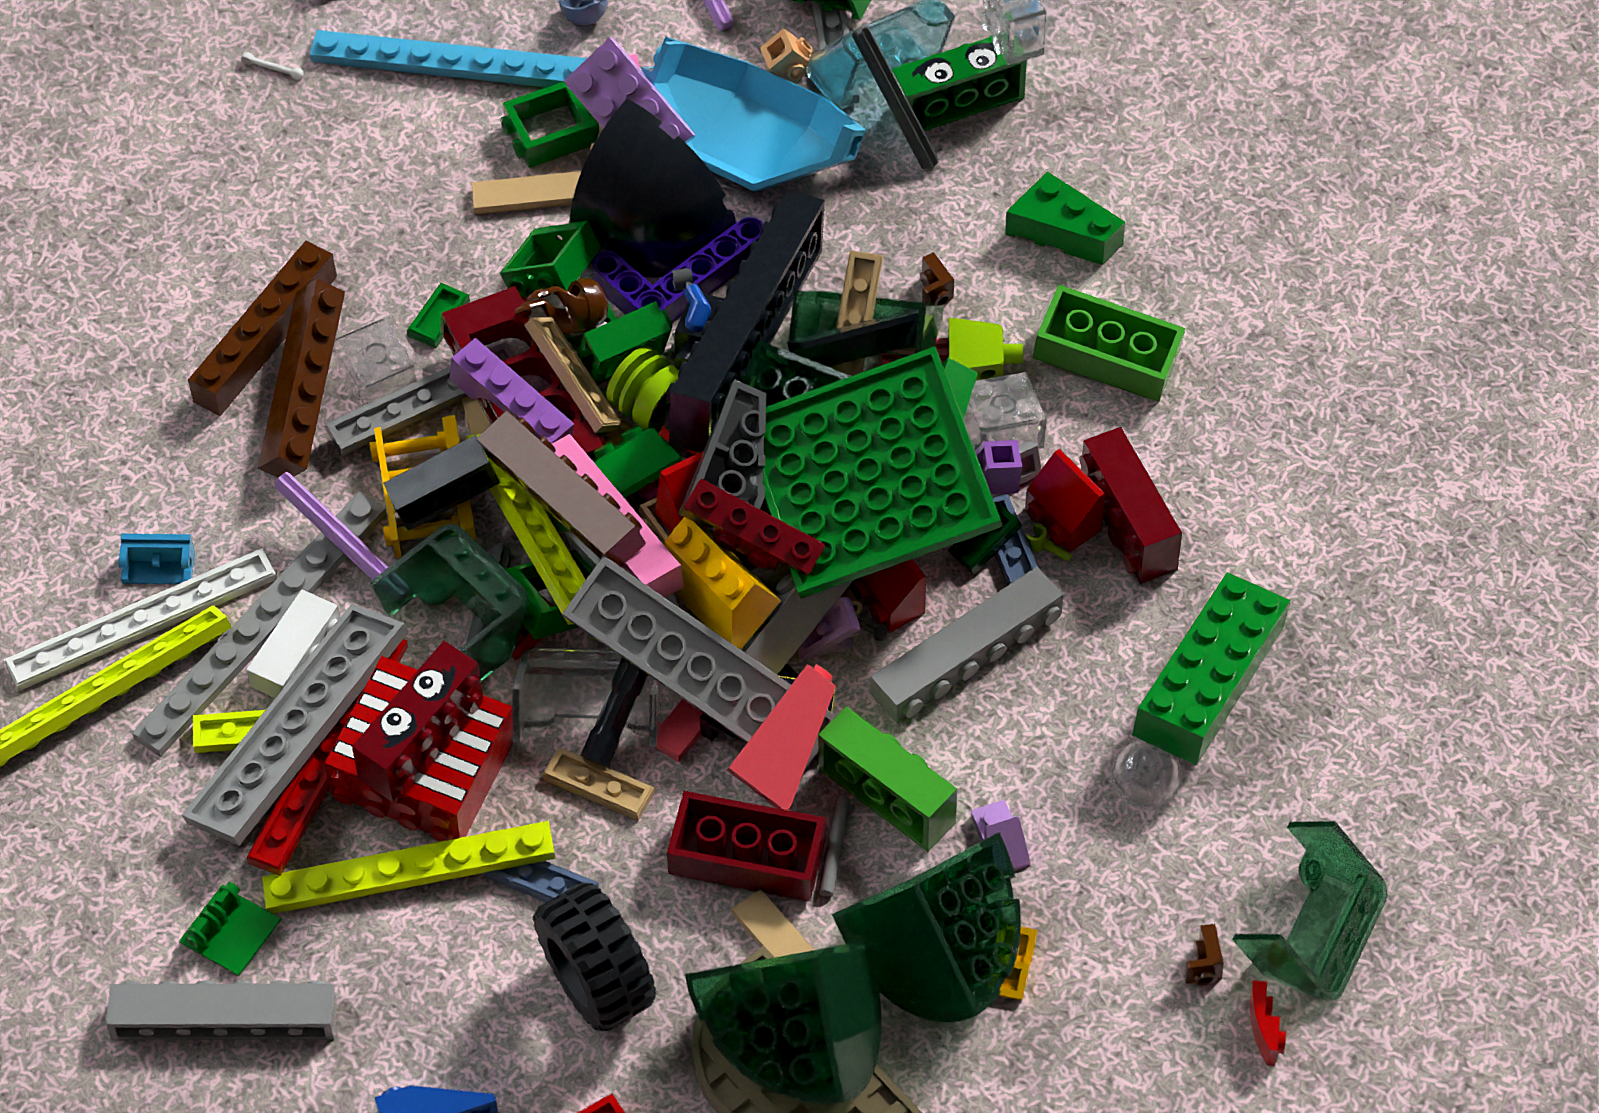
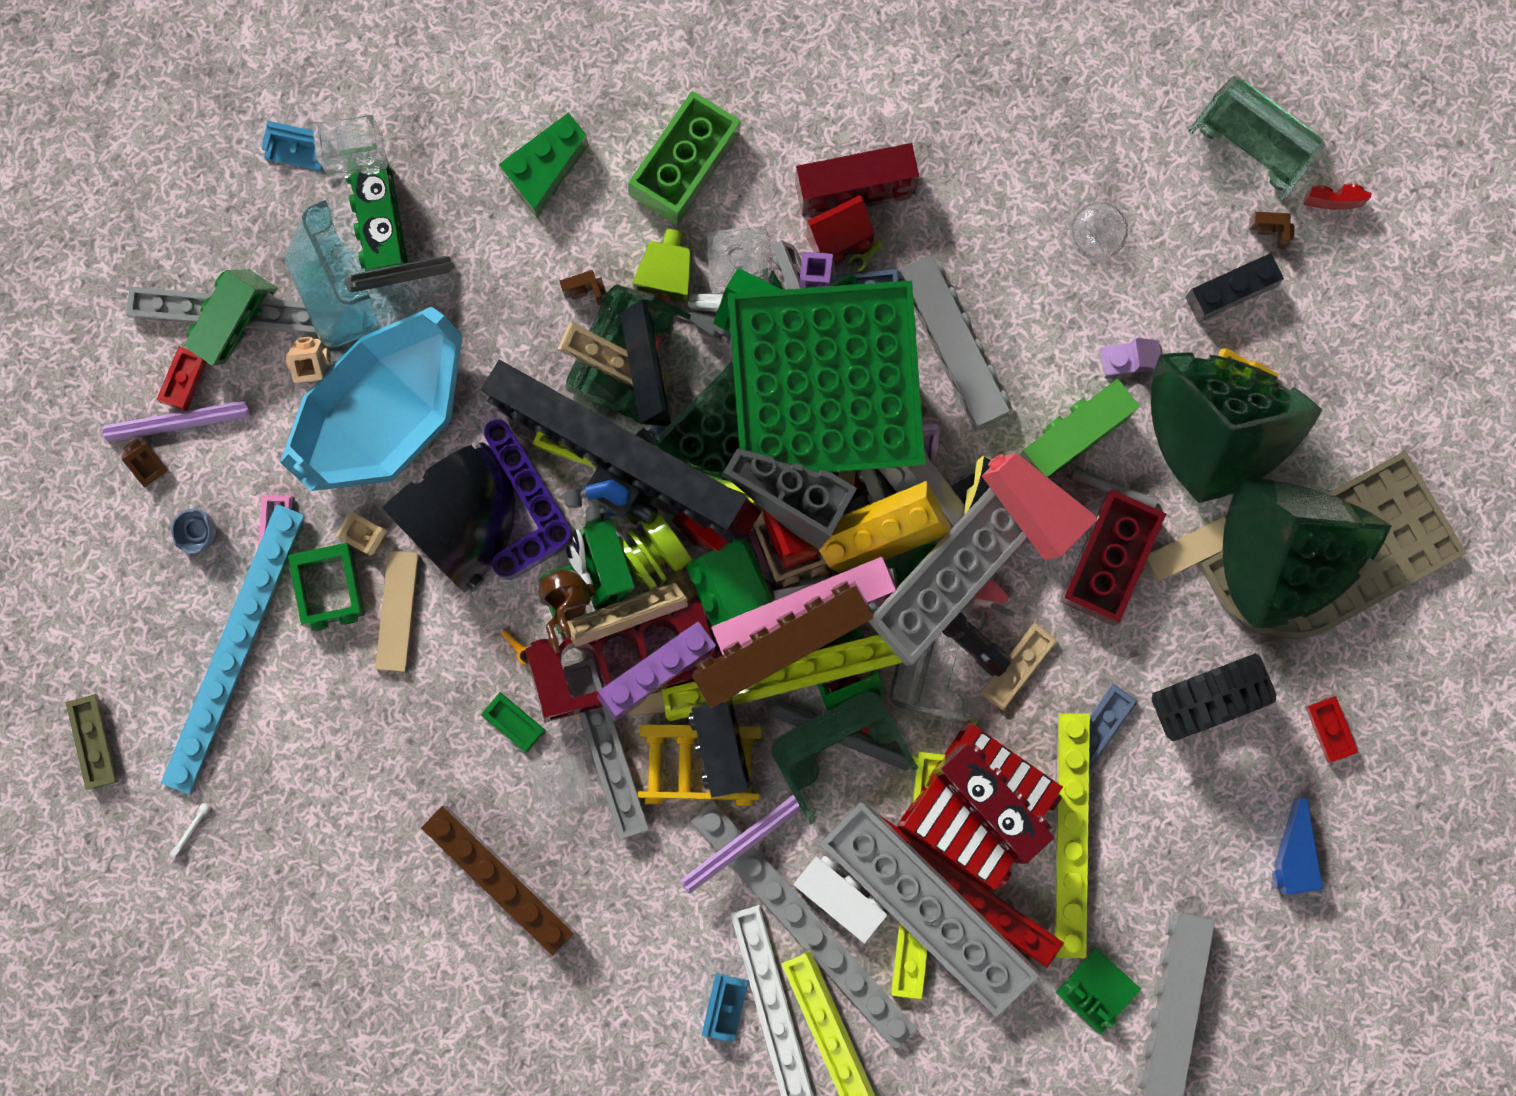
camera: 80 degrees left, 25 degrees up
(301, 379) = (573, 853): reddish brown brick -> none
(570, 256) = (470, 602): green window -> none
(611, 78) = (340, 511): lavender plate -> none
(752, 531) = (864, 487): dark red bracket -> none
(1115, 925) = (1234, 287): none -> black brick
(1211, 668) = (1029, 154): green brick -> none

